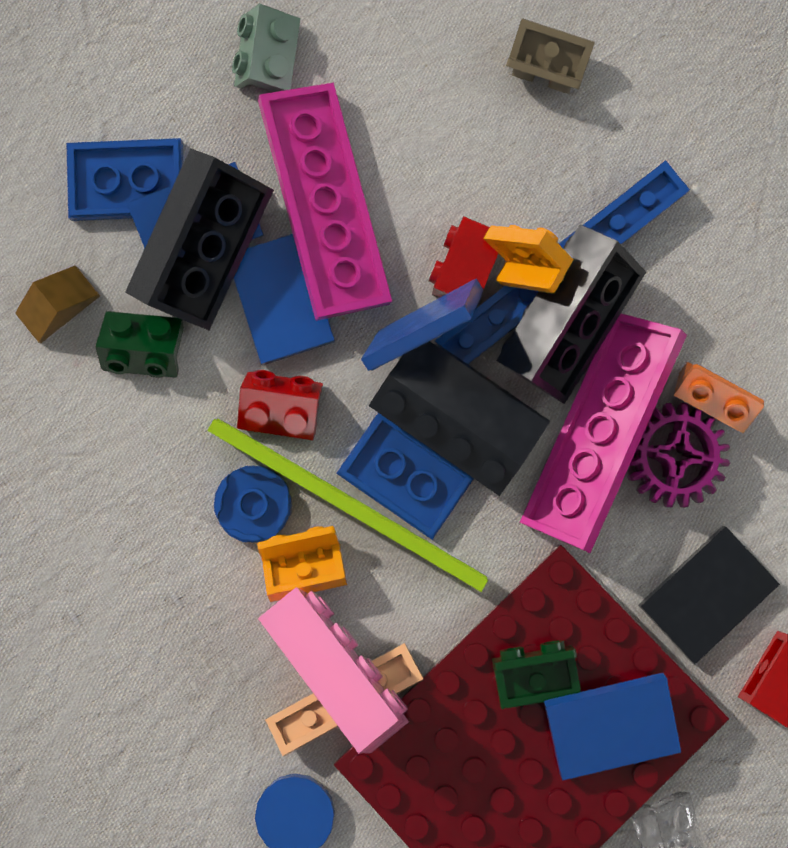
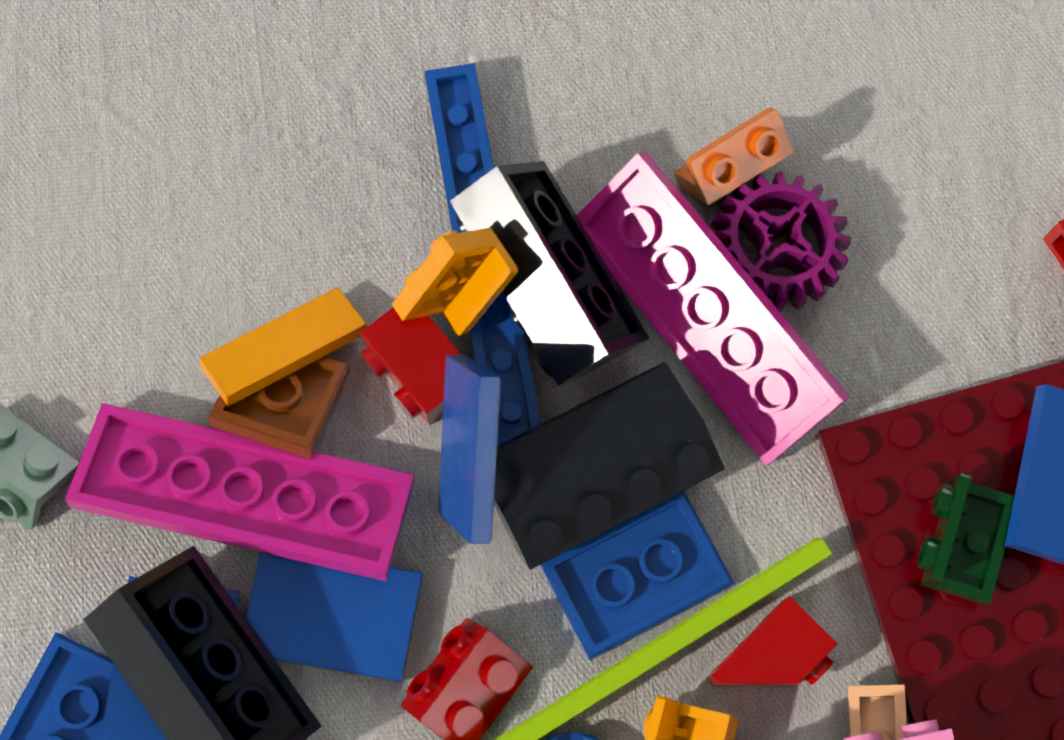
camera: 65 degrees left, 10 degrees down
(398, 189) = (289, 411): none -> dark orange tile
(401, 588) = (778, 652): none -> red slope
(430, 173) = (282, 346): none -> light orange tile
(549, 55) = (223, 134): dark tan bracket -> none
(708, 594) = (963, 293): black tile -> none

